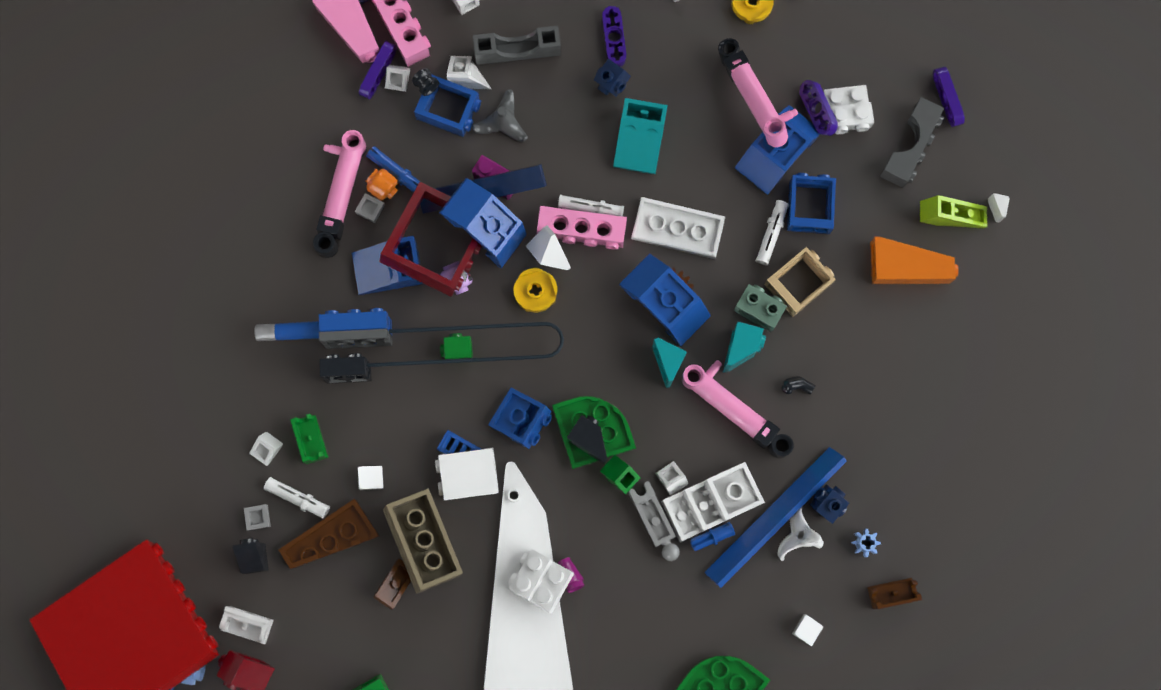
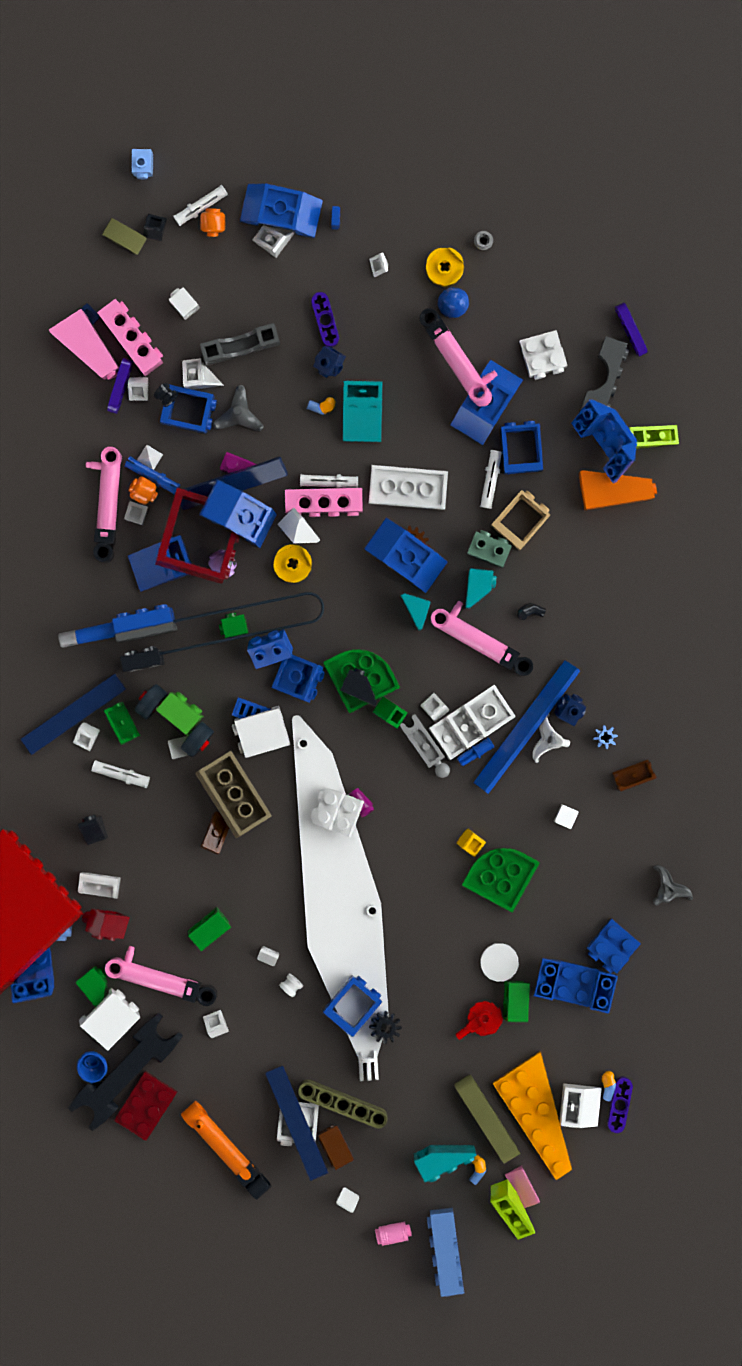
camera: 10 degrees left, 10 degrees up
(255, 420) = (73, 714): none -> dark blue tile
(257, 517) = (90, 796): light grey plate -> none
(331, 535) = (156, 800): reddish brown wing -> none
(381, 440) = (178, 713): none -> brick
(397, 151) = (150, 457): none -> white slope
(493, 379) = (270, 648): none -> blue brick
(596, 128) = (322, 408): none -> arm
(691, 643) = (471, 842): none -> yellow slope
(756, 40) = (453, 302): none -> blue piece
(826, 111) = (523, 364): dark purple beam -> none
(913, 200) = (611, 435): none -> blue slope
(998, 206) = (686, 424): white slope -> none

